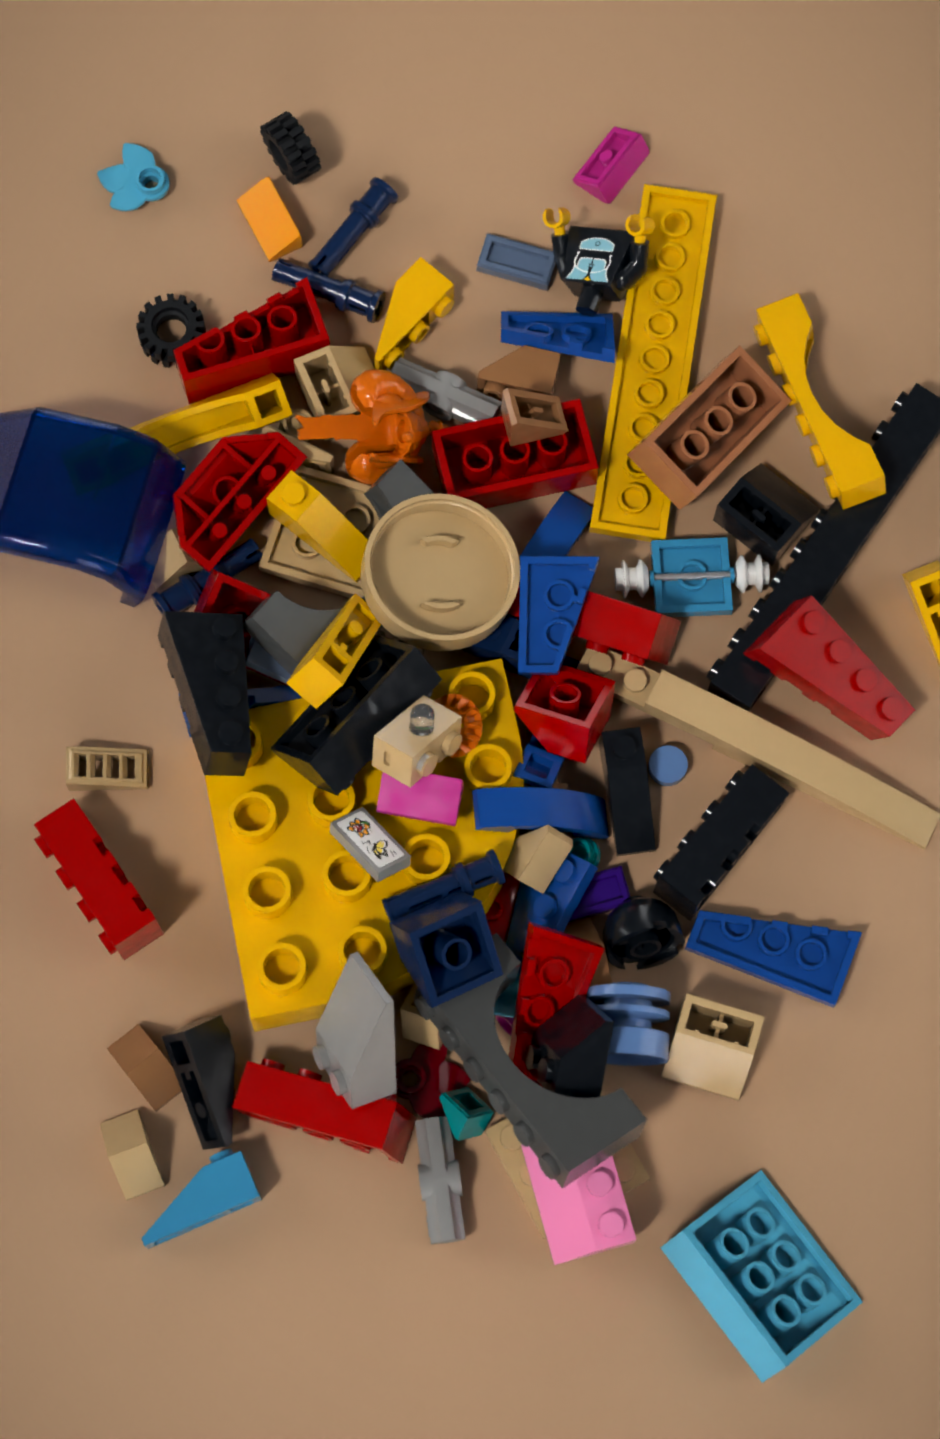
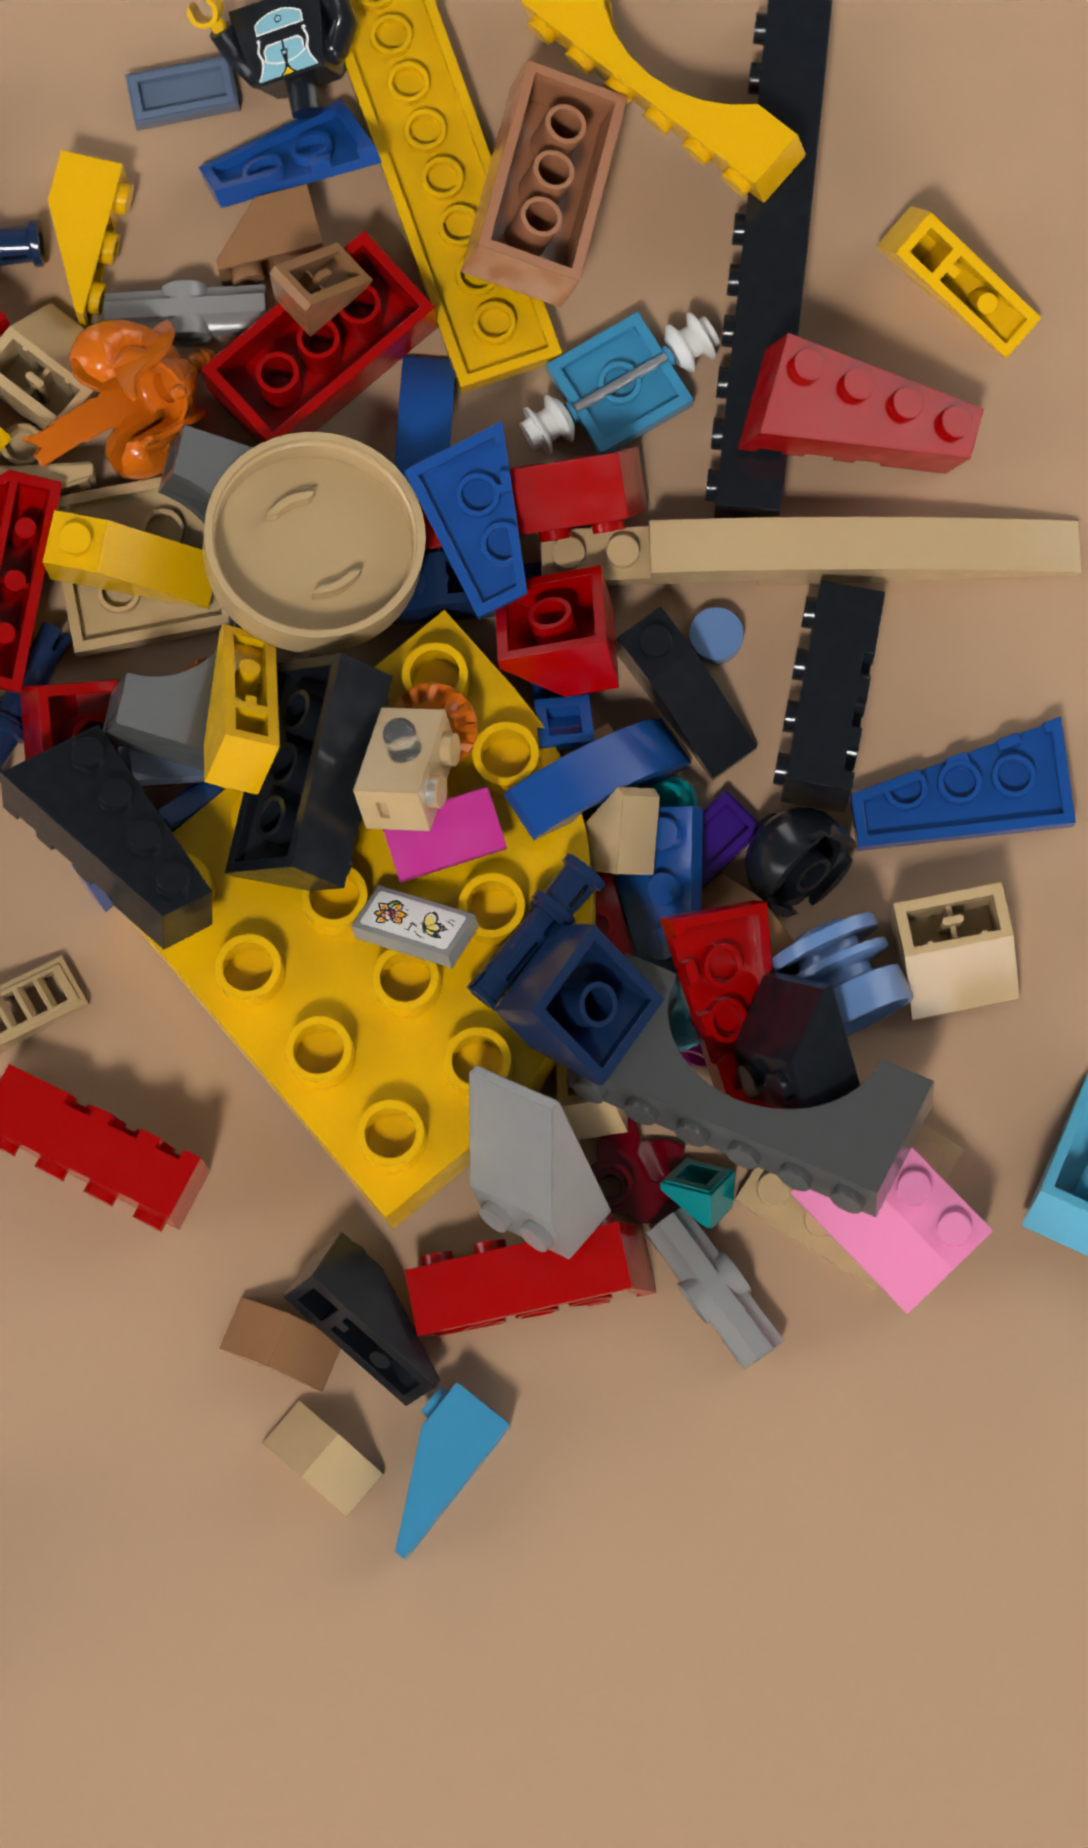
camera: 25 degrees left, 5 degrees up
(764, 513) = (668, 256): black slope -> none

